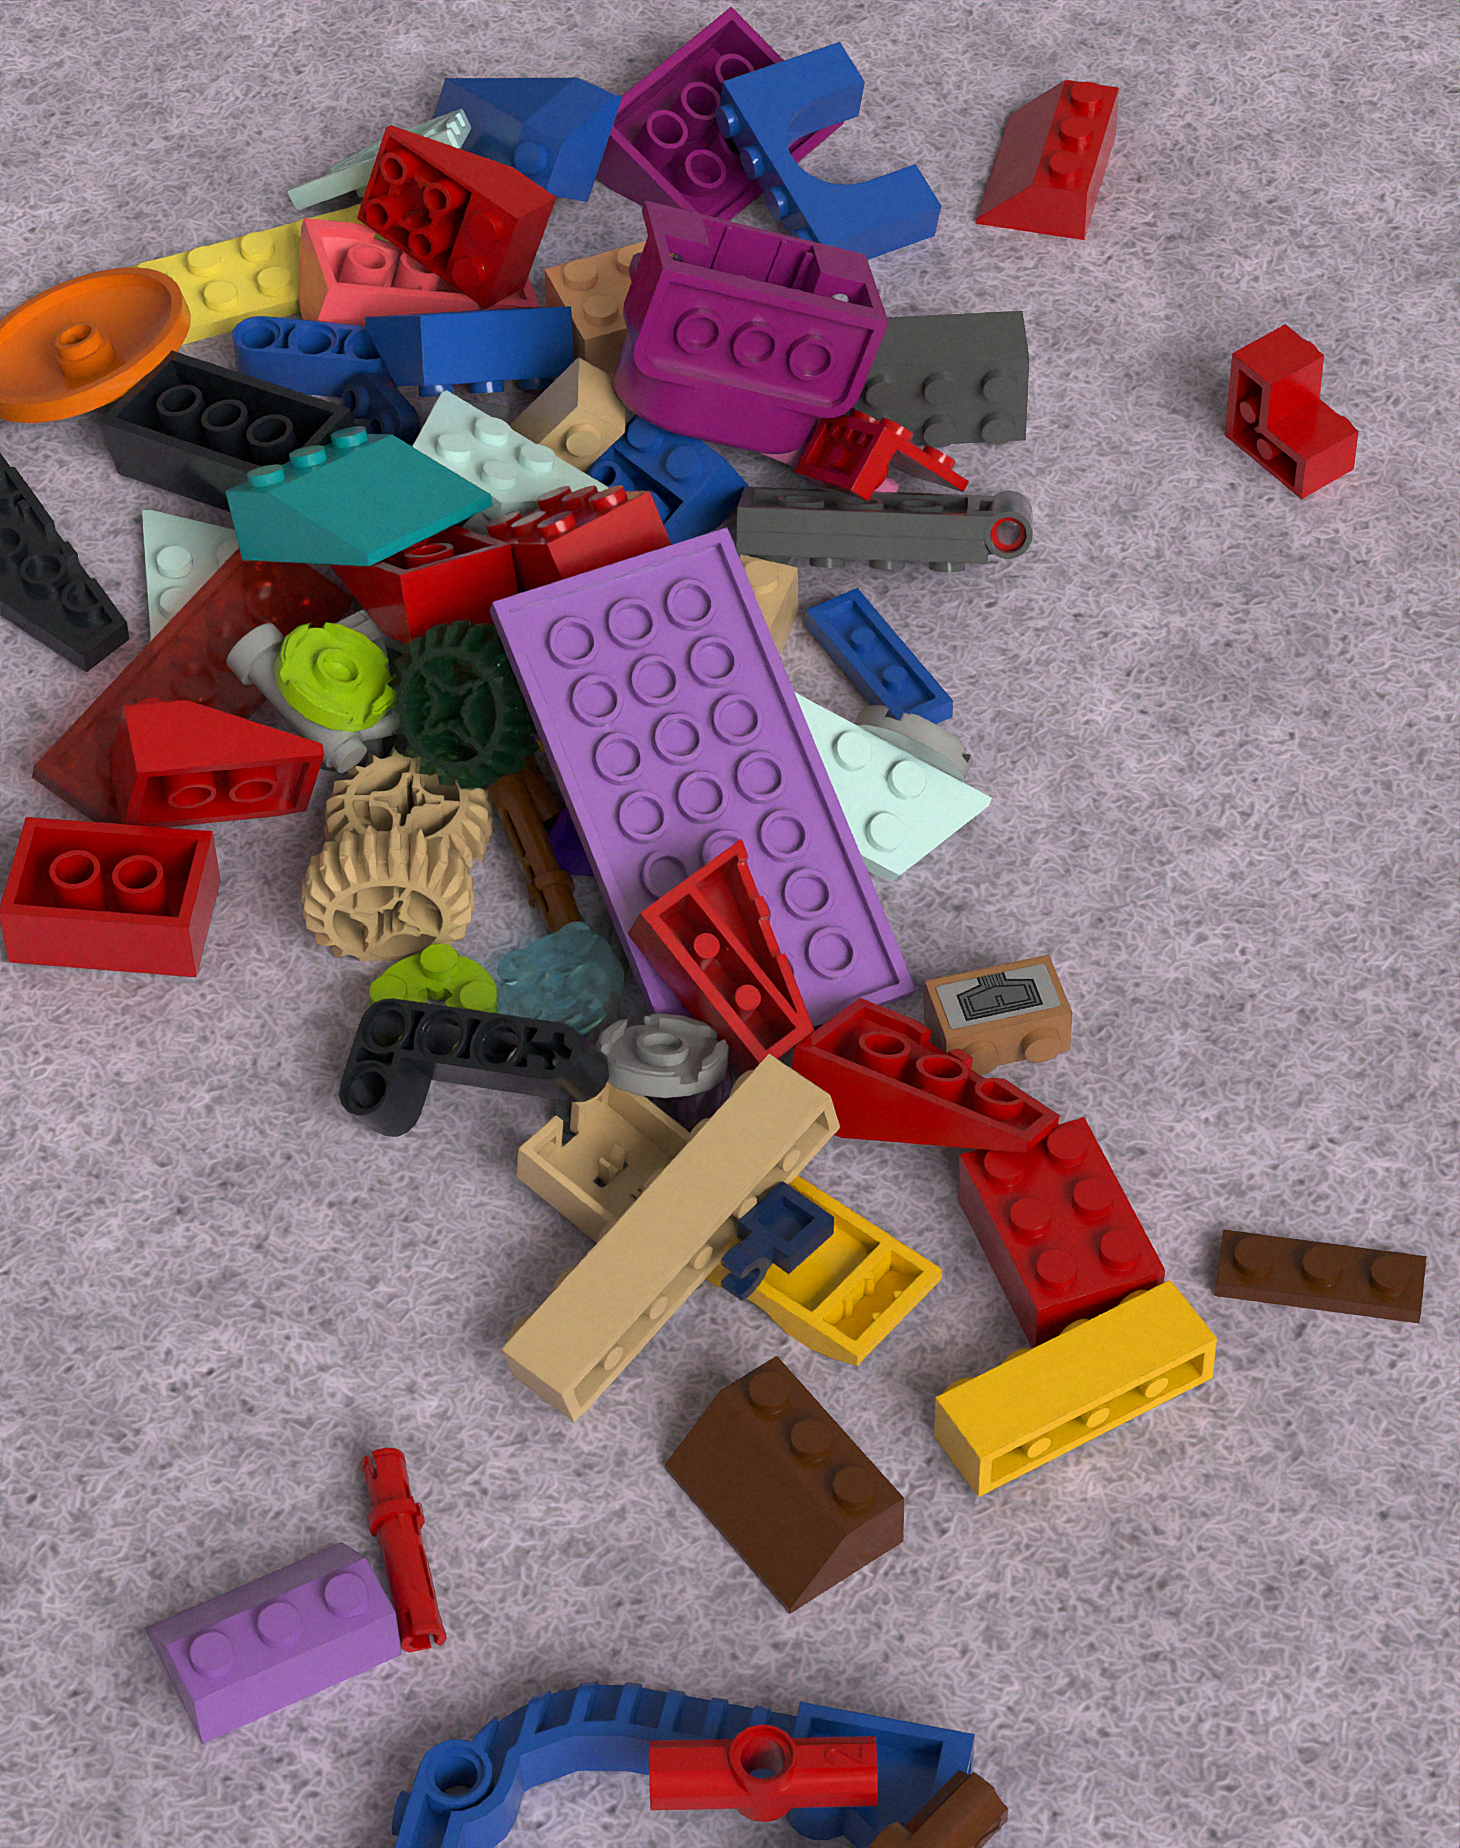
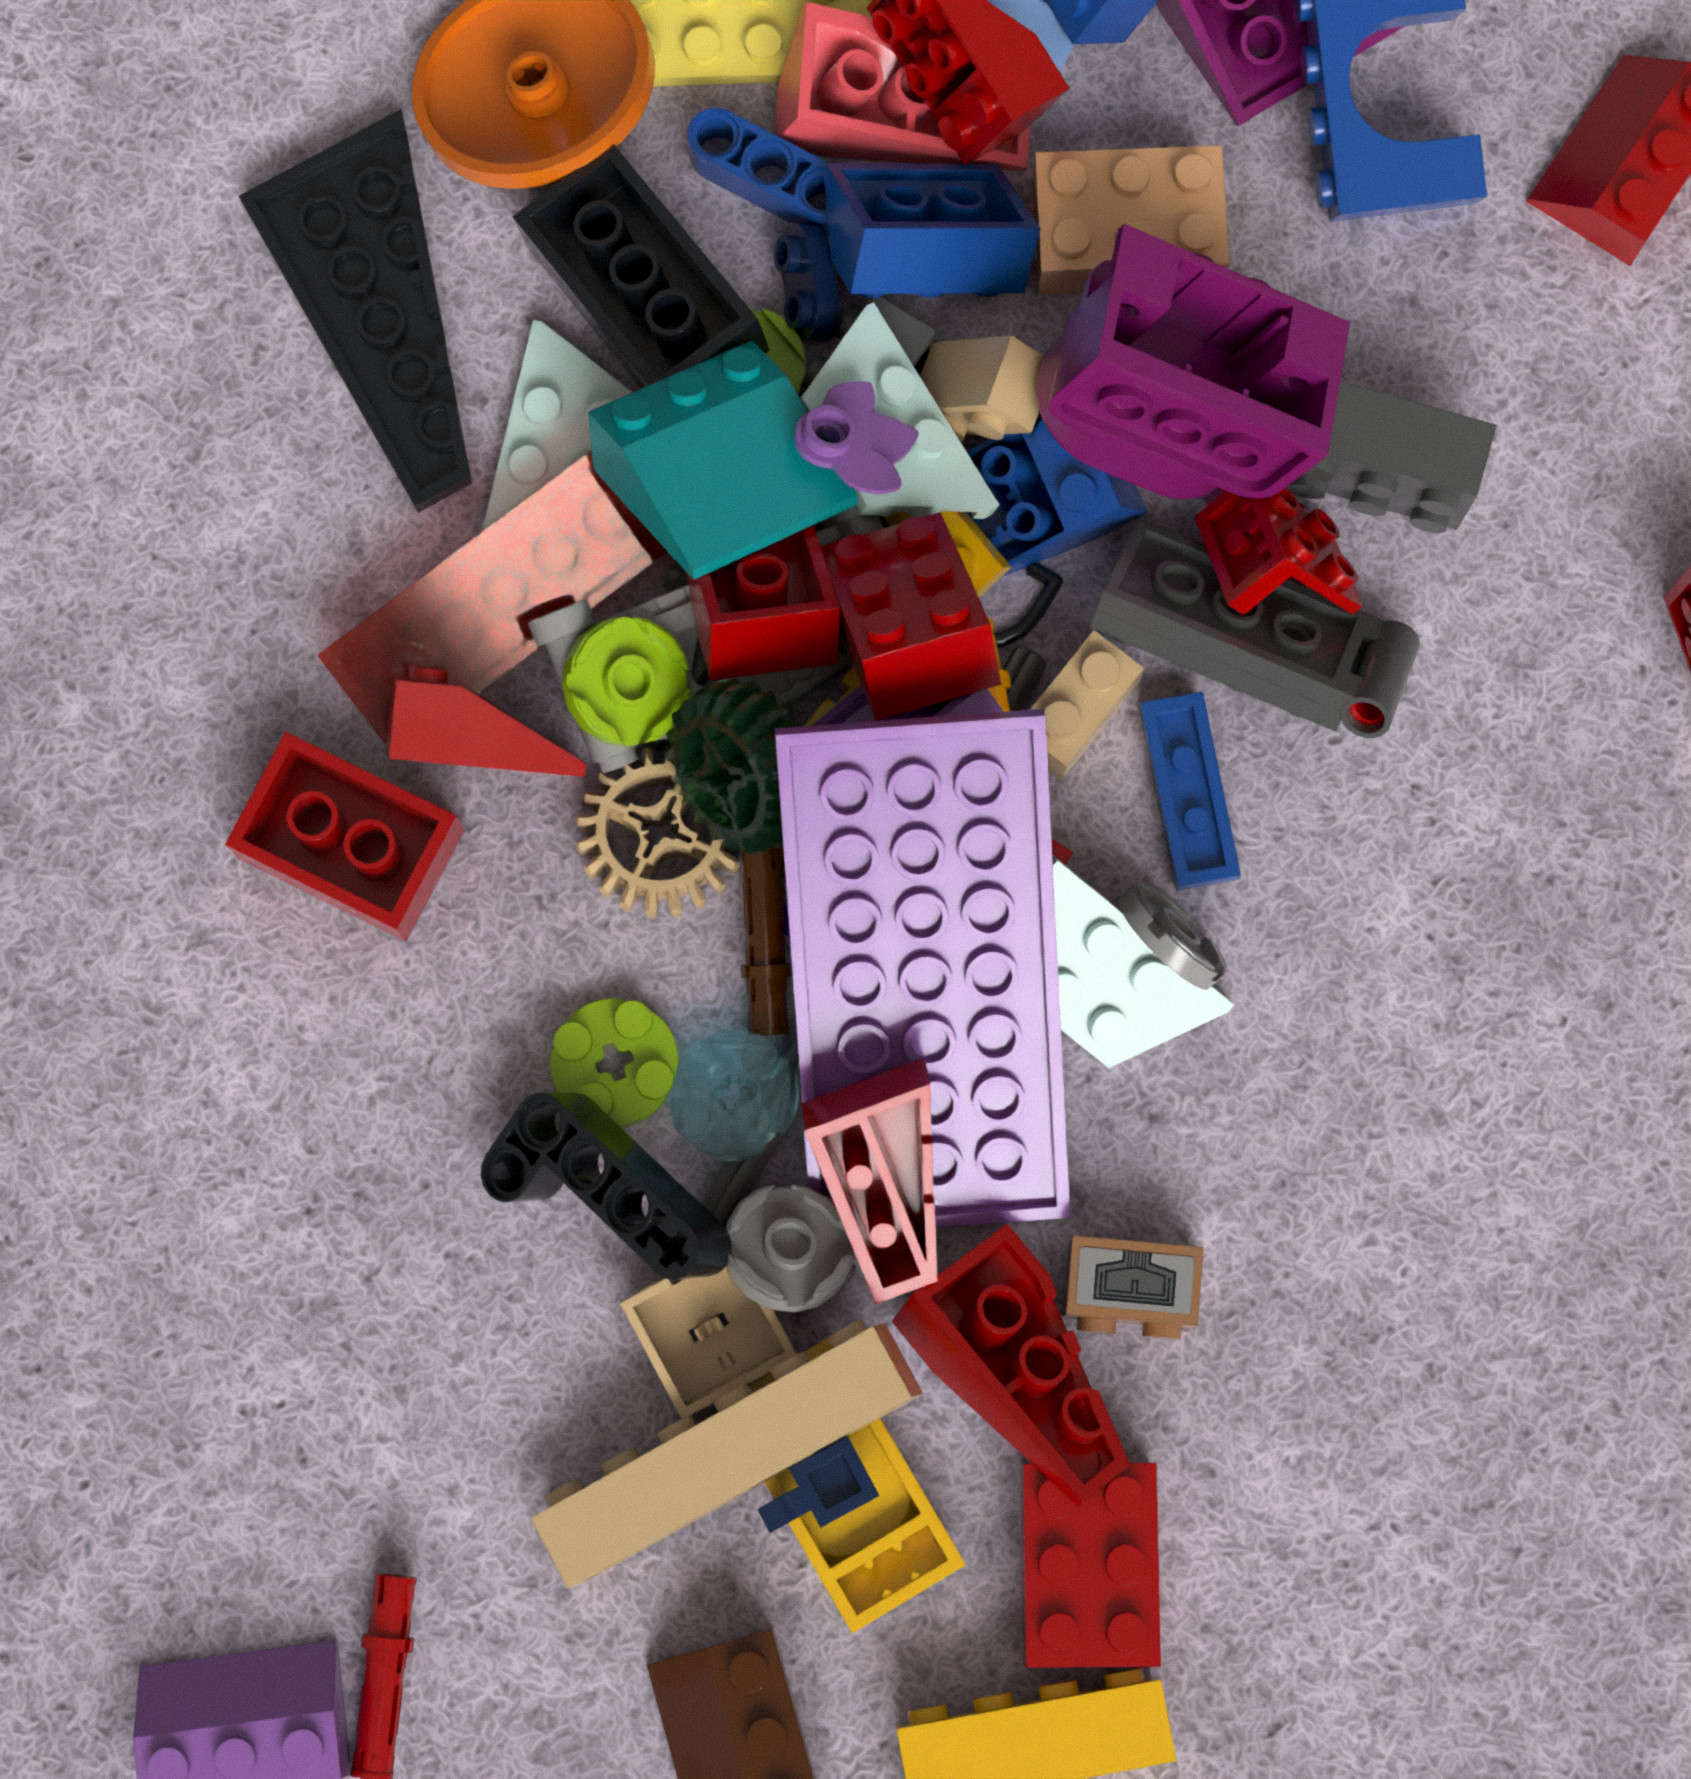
camera: 20 degrees right, 30 degrees up
(386, 894) = (602, 943): tan gear -> none
(459, 447) = (862, 440): none -> medium lavender plate
(1321, 1276) = (1316, 1684): reddish brown plate -> none

